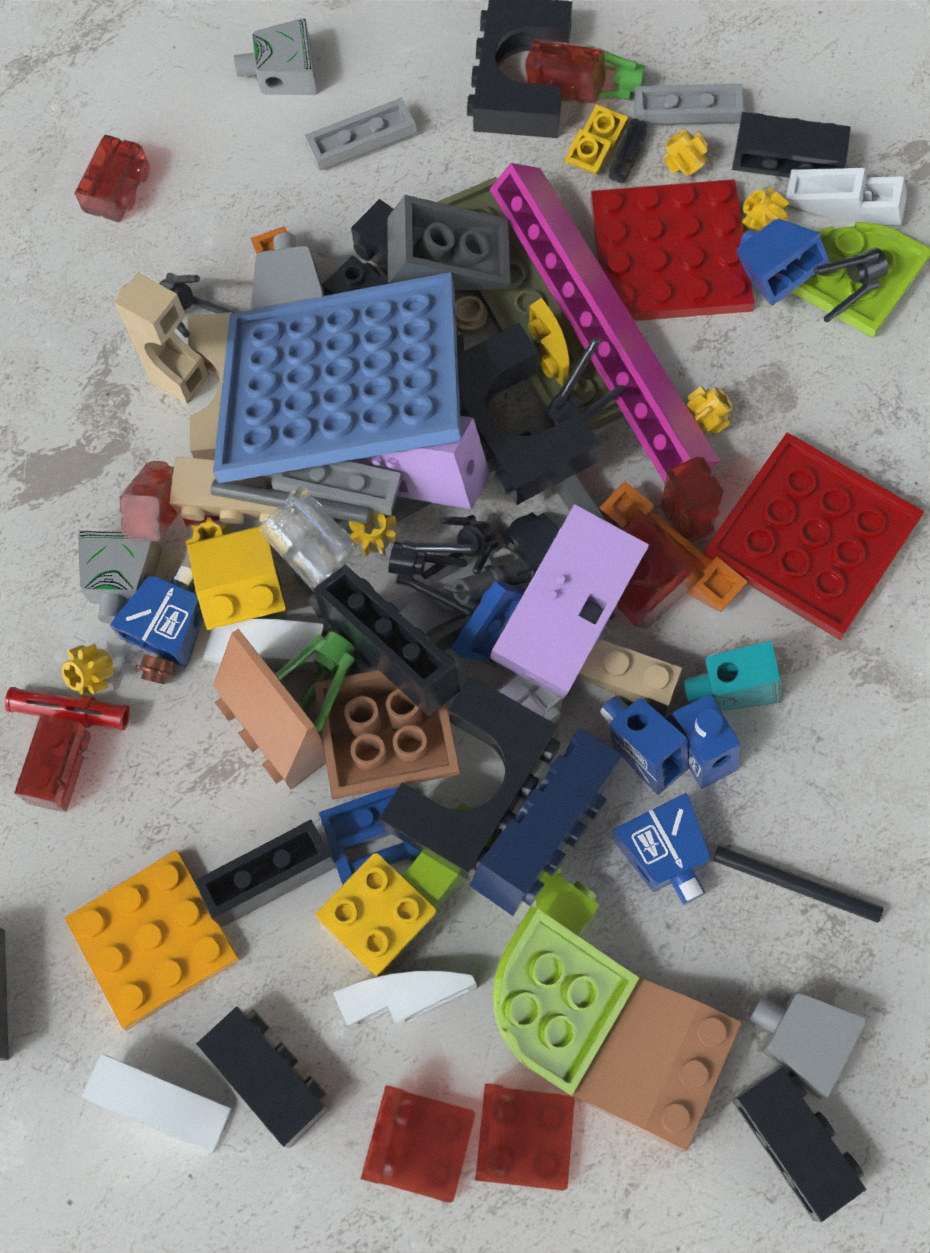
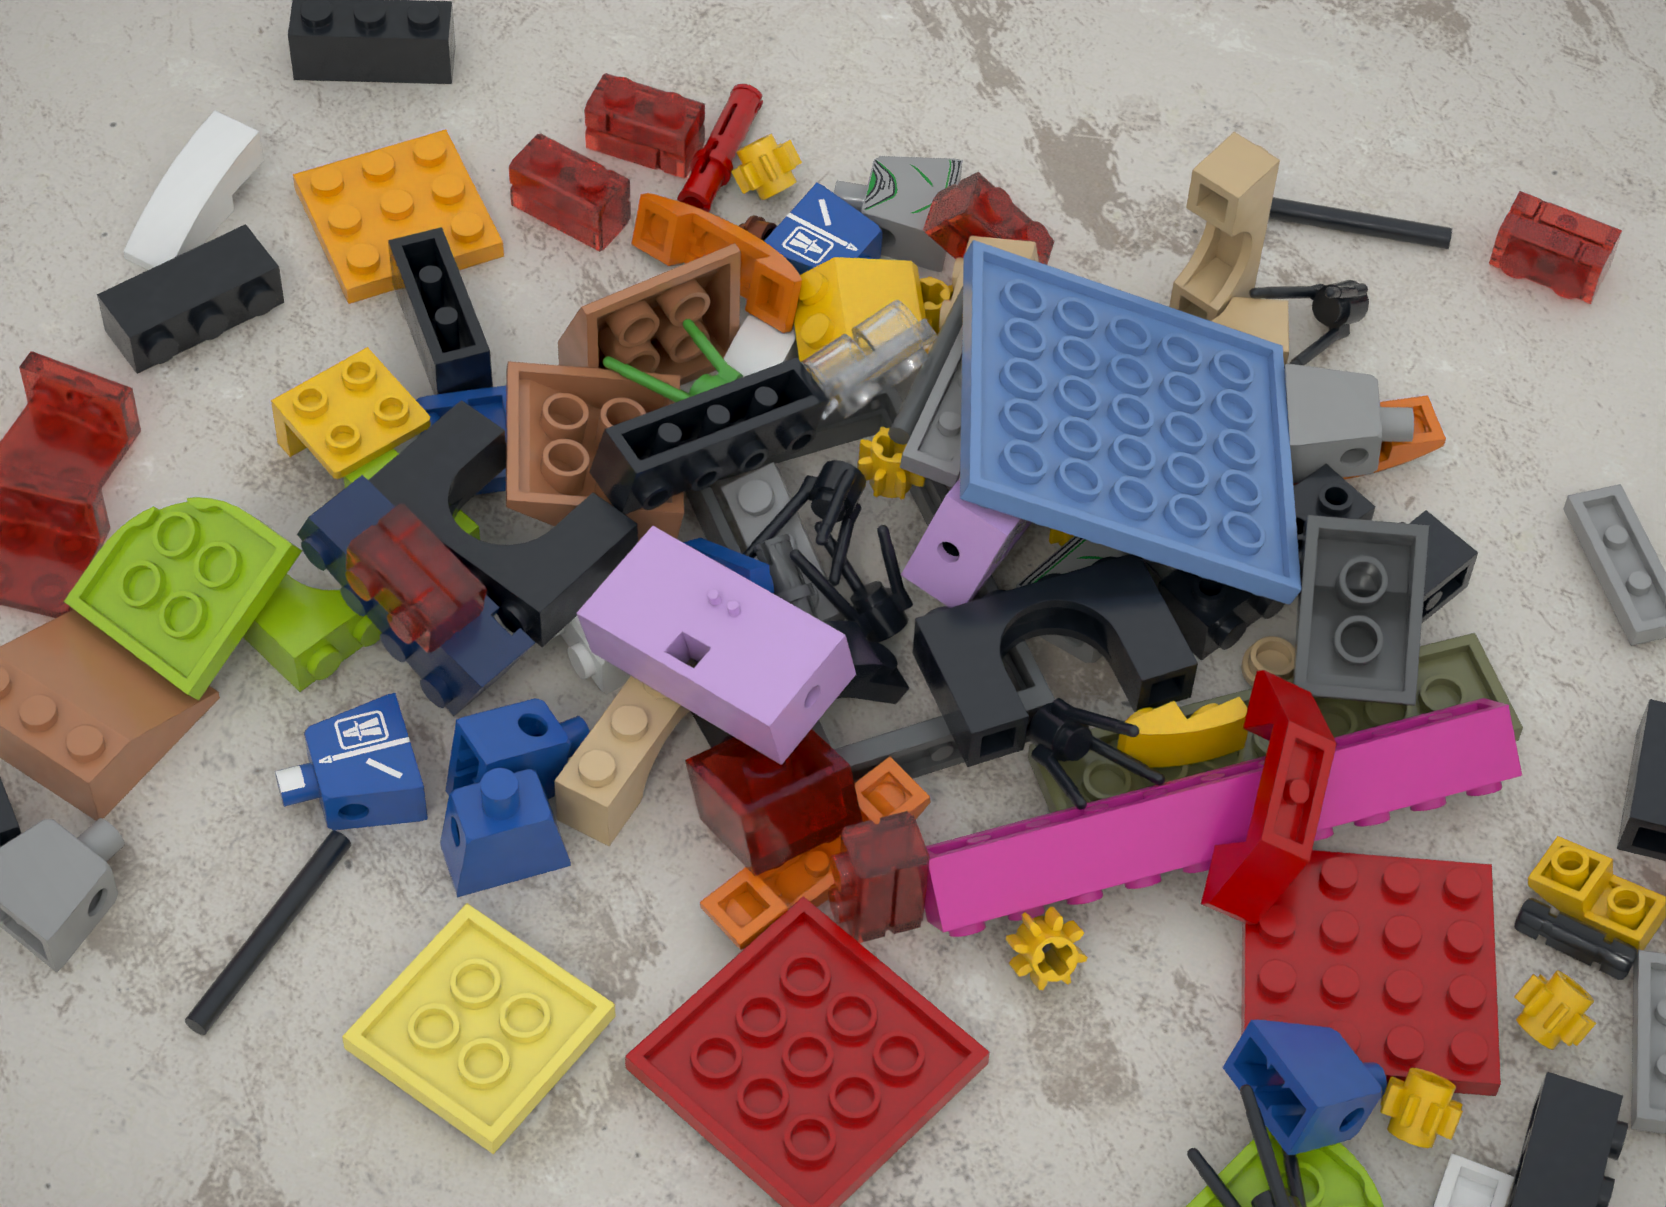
camera: 90 degrees right, 15 degrees down
(93, 305) = (1360, 223): none -> black bar
(126, 805) = (570, 192): none -> clear red brick
(179, 679) = (684, 233): none -> orange slope
(402, 994) = (247, 438): white slope -> none
(548, 272) = (1288, 804): none -> red slope
(568, 803) = (413, 579): none -> clear red brick
(751, 673) = (581, 873): teal torso -> none
(840, 730) = (479, 1027): none -> light yellow plate

